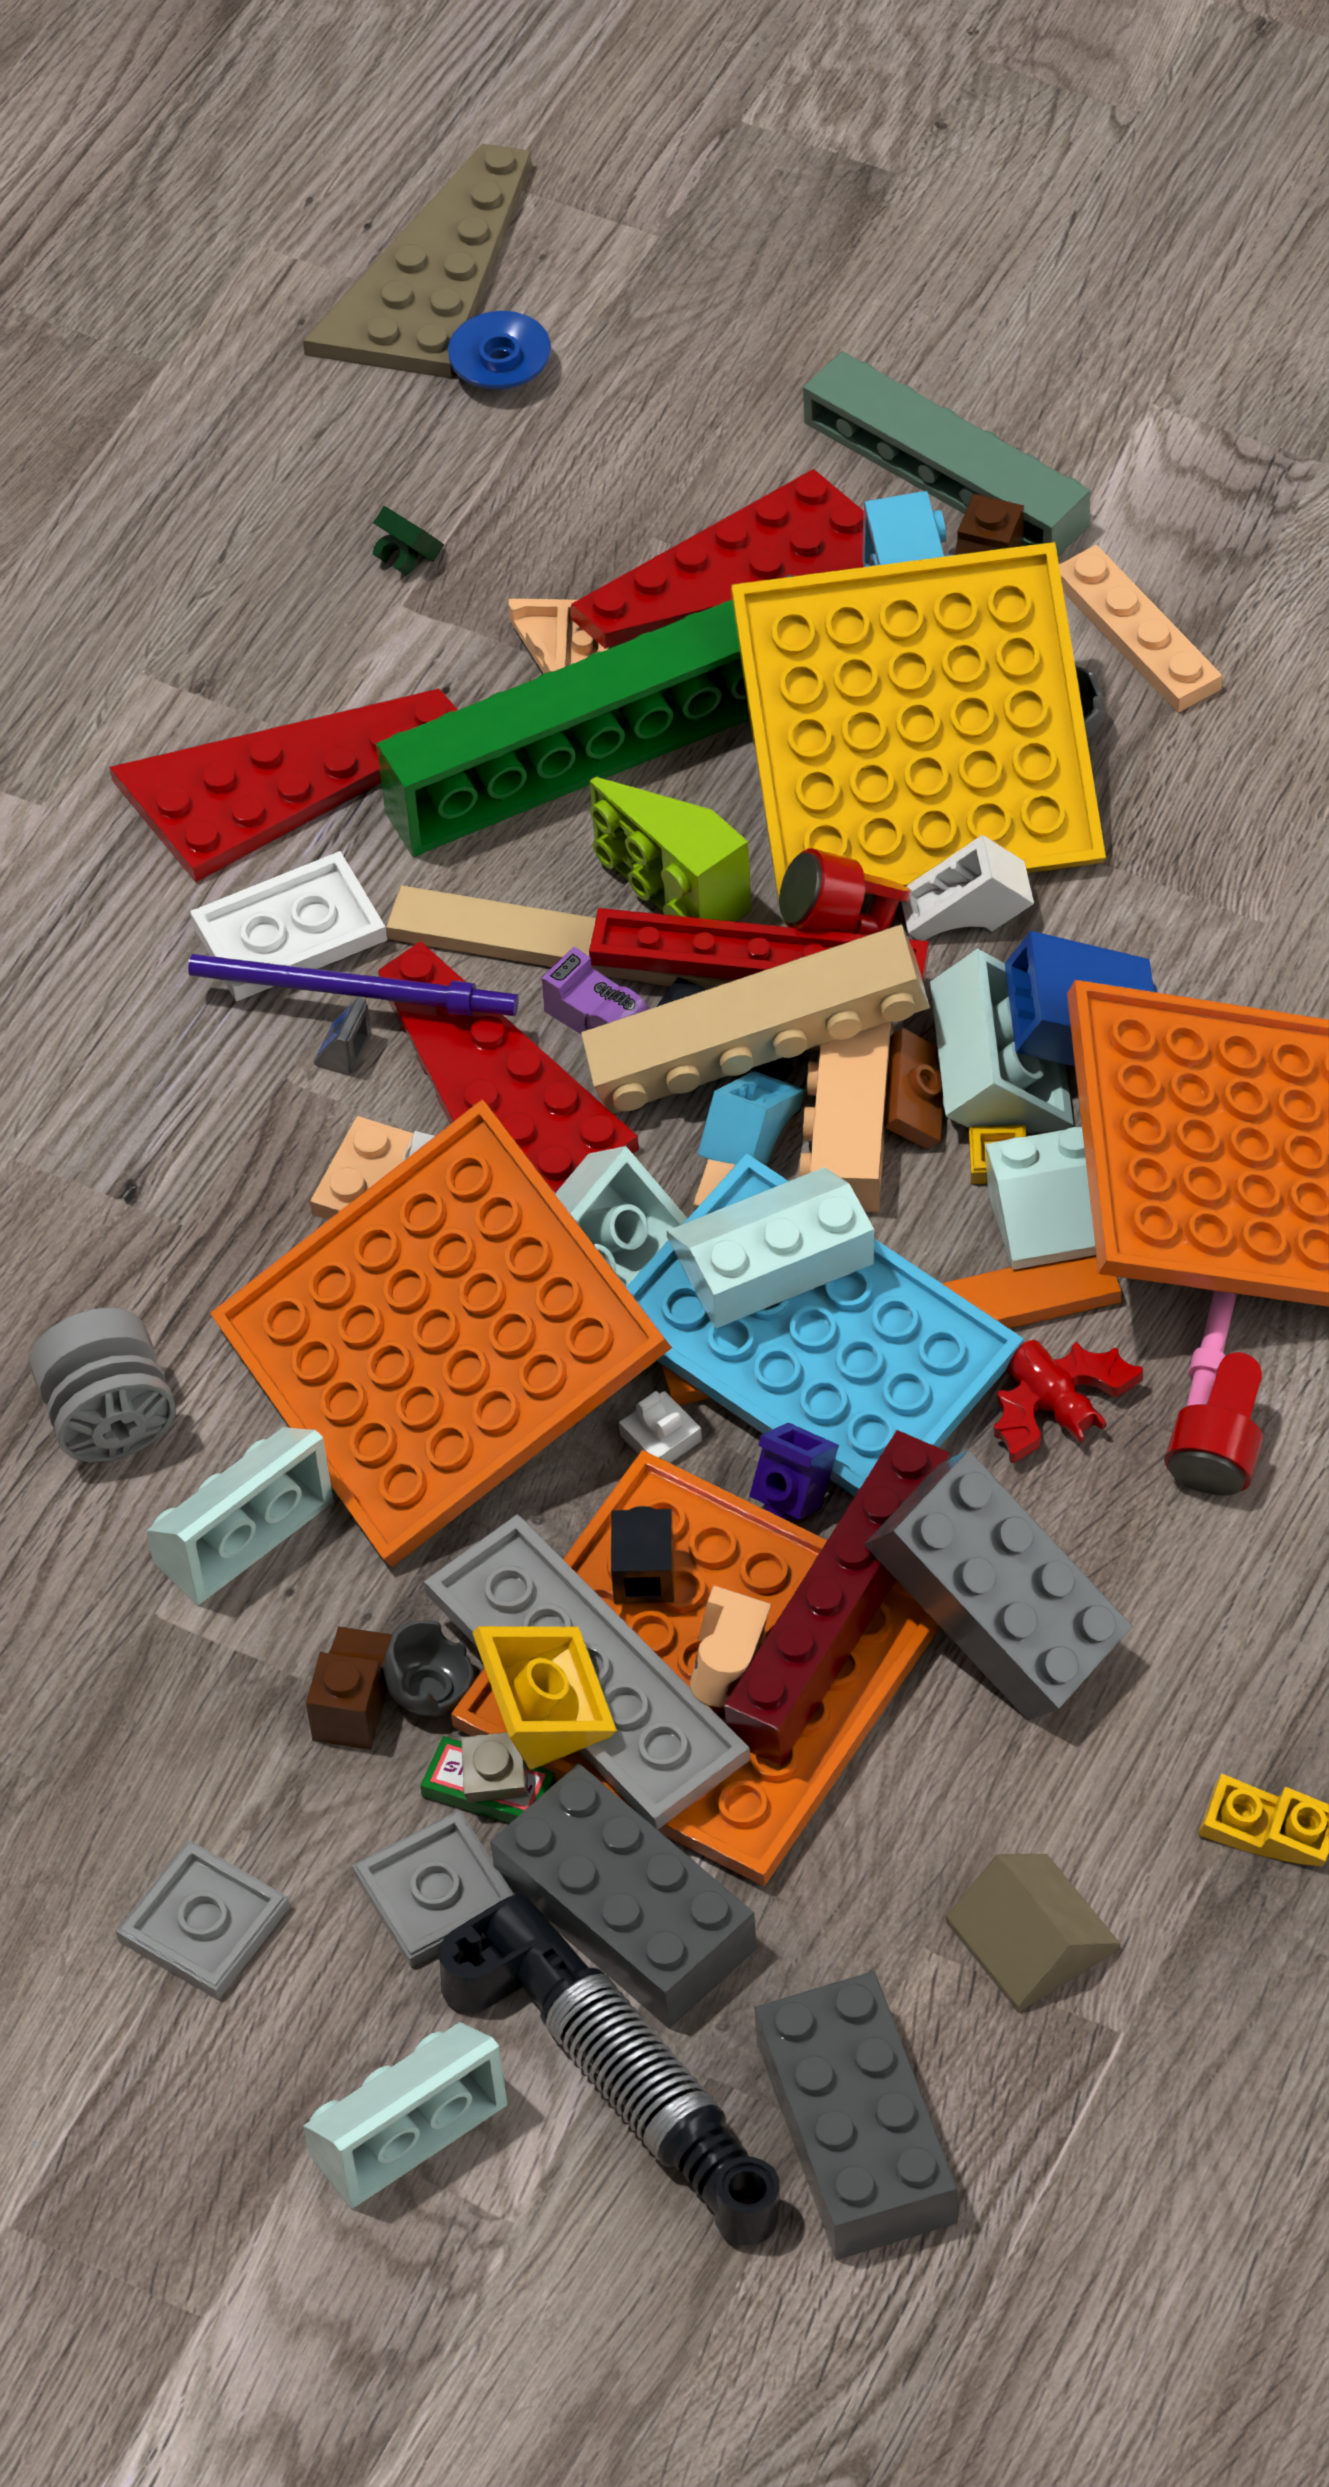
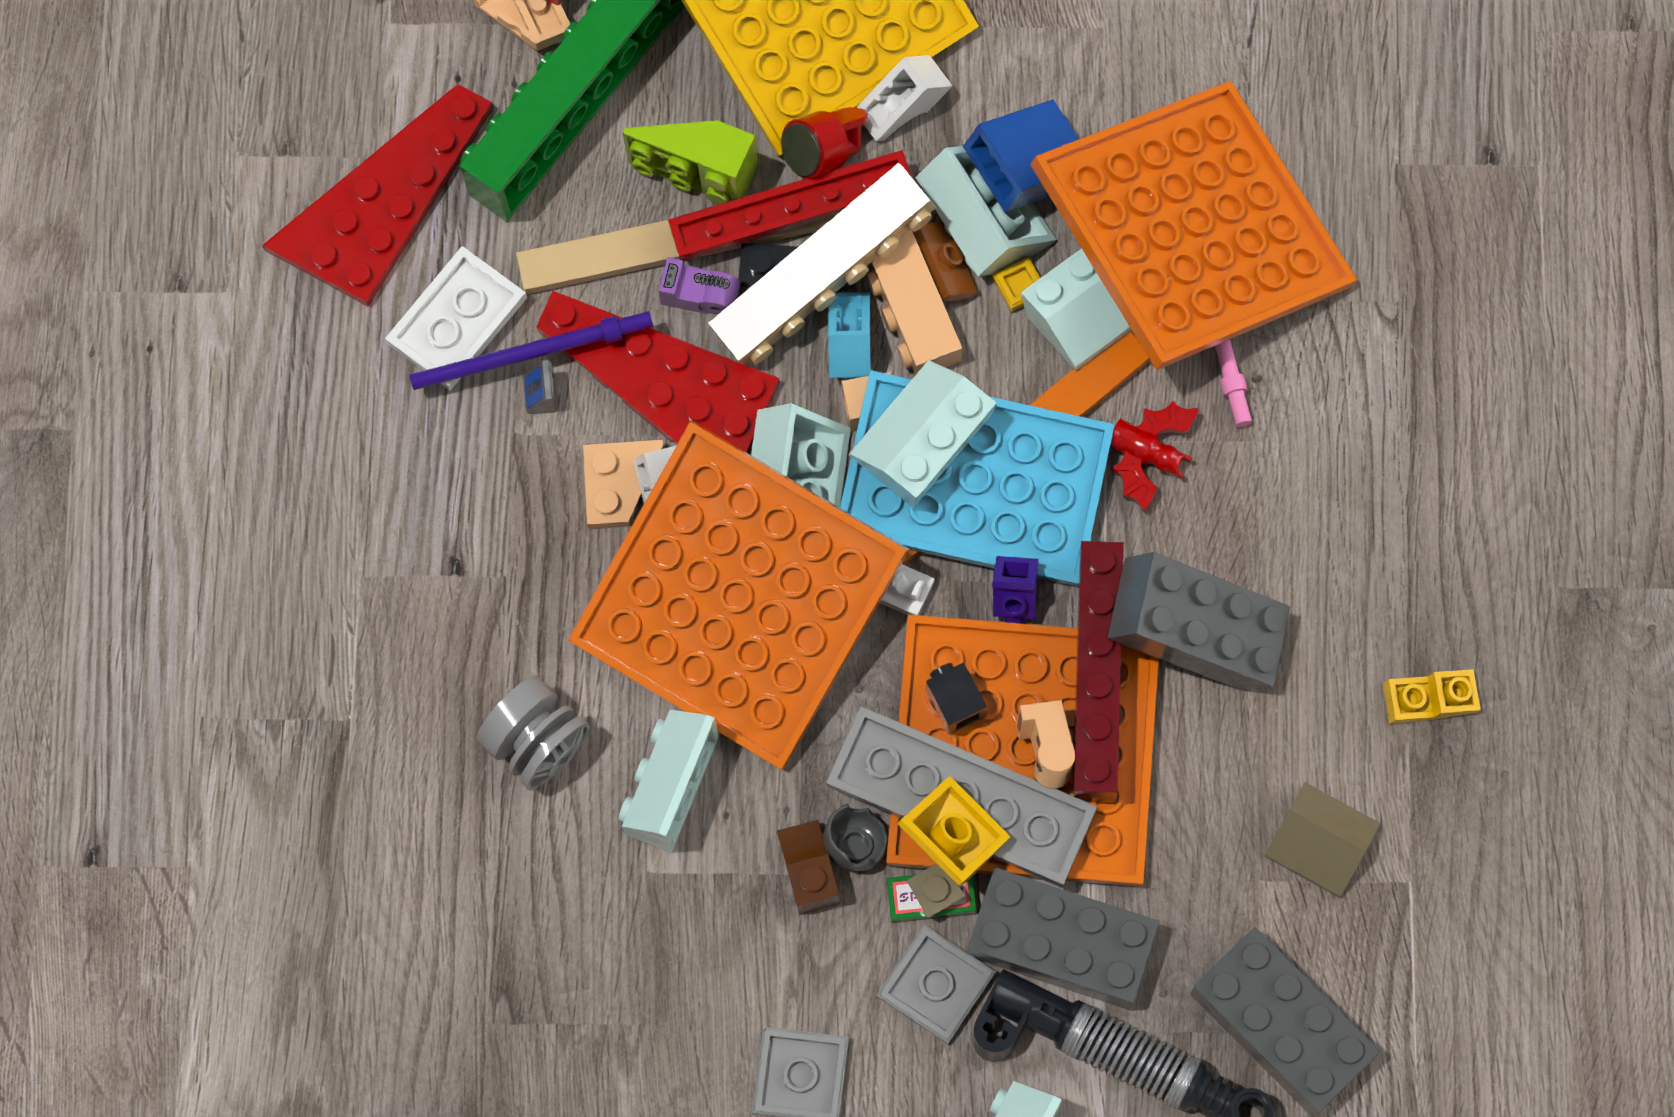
camera: 25 degrees left, 20 degrees up
(1216, 1442) = (1274, 444): red piece -> none

